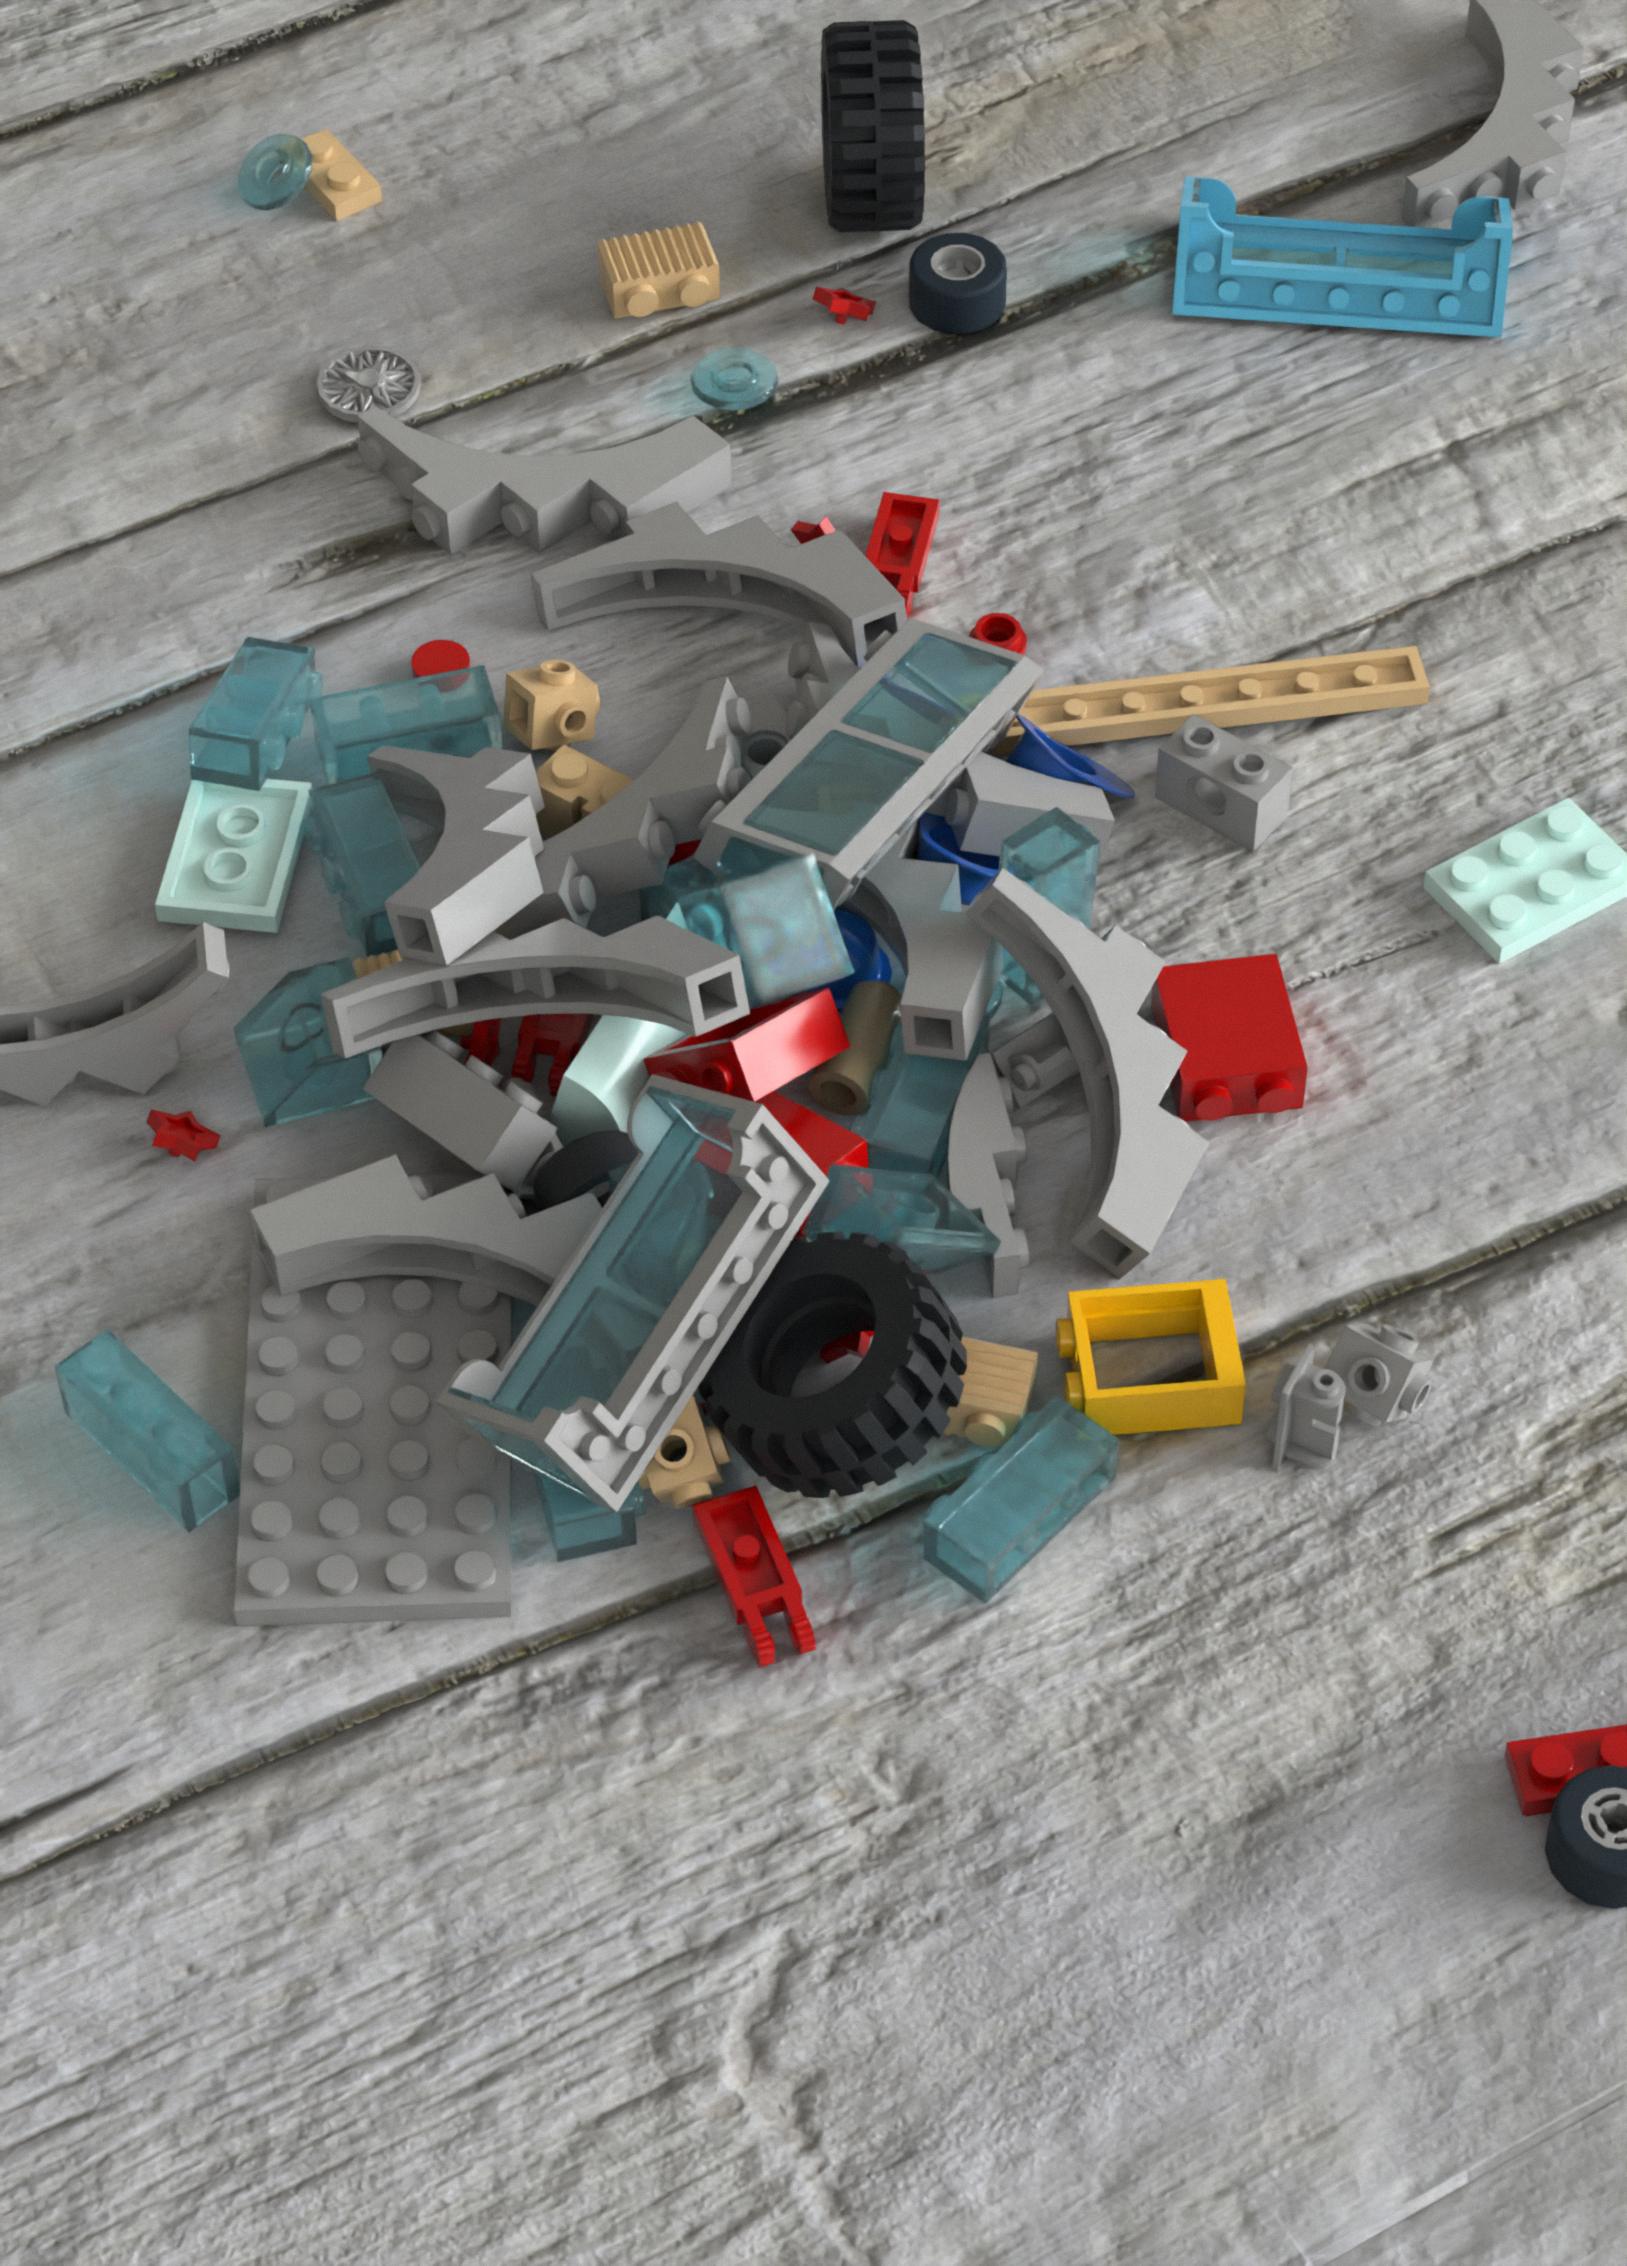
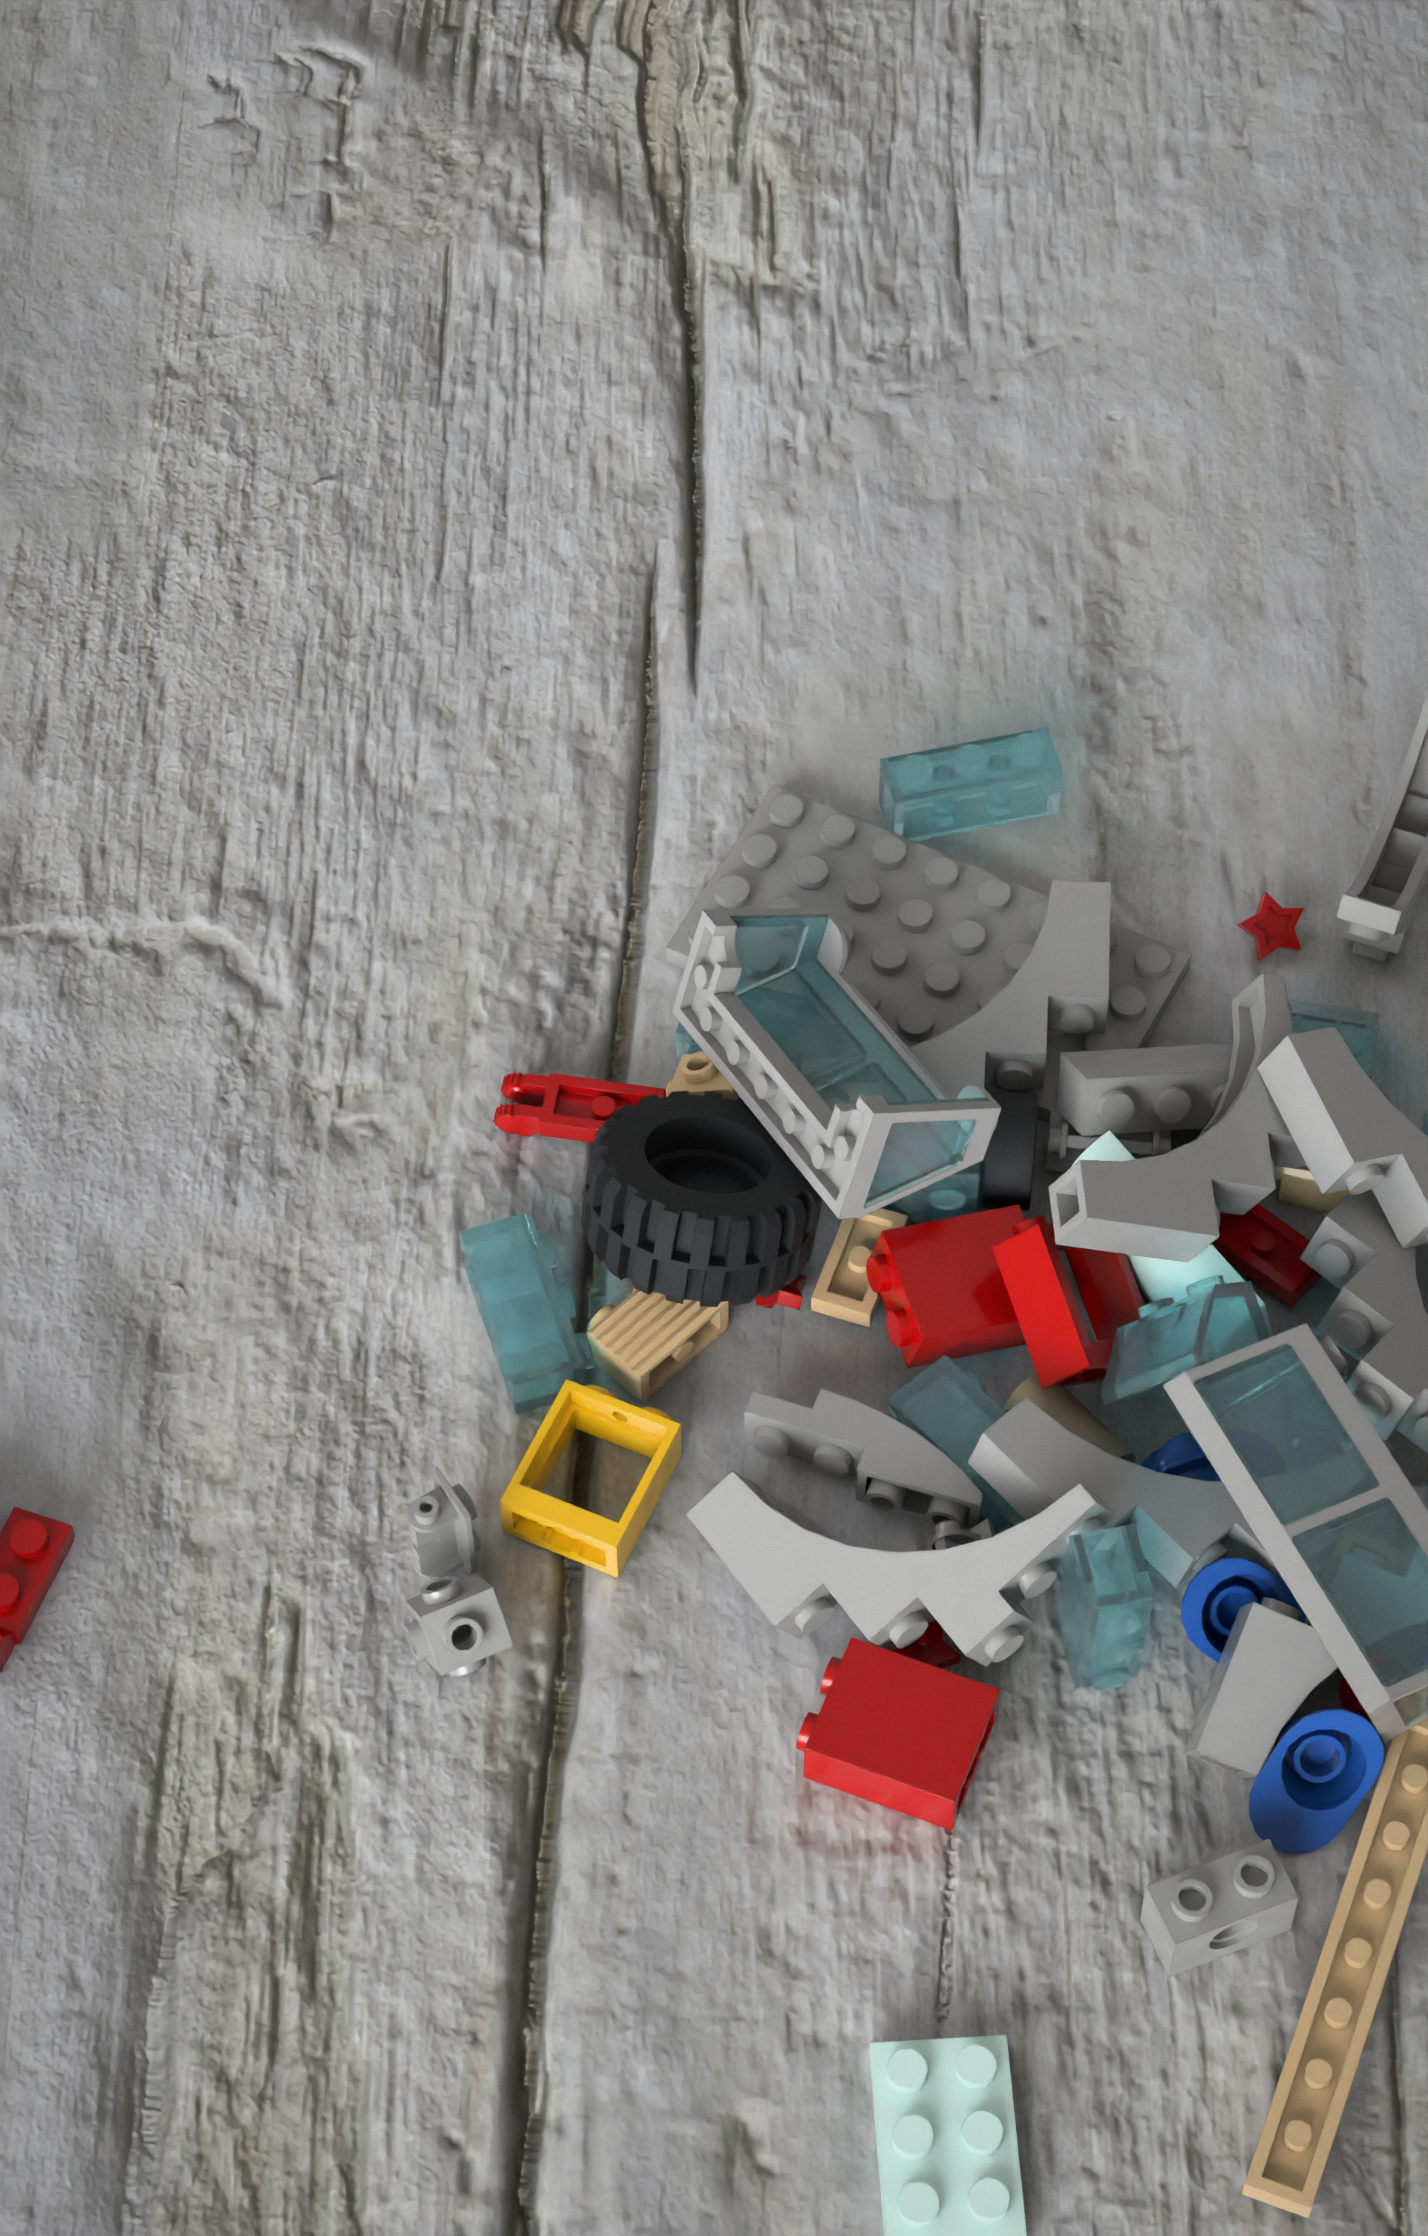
camera: 120 degrees right, 5 degrees up
(905, 1210) = (815, 1323): clear light blue slope -> none

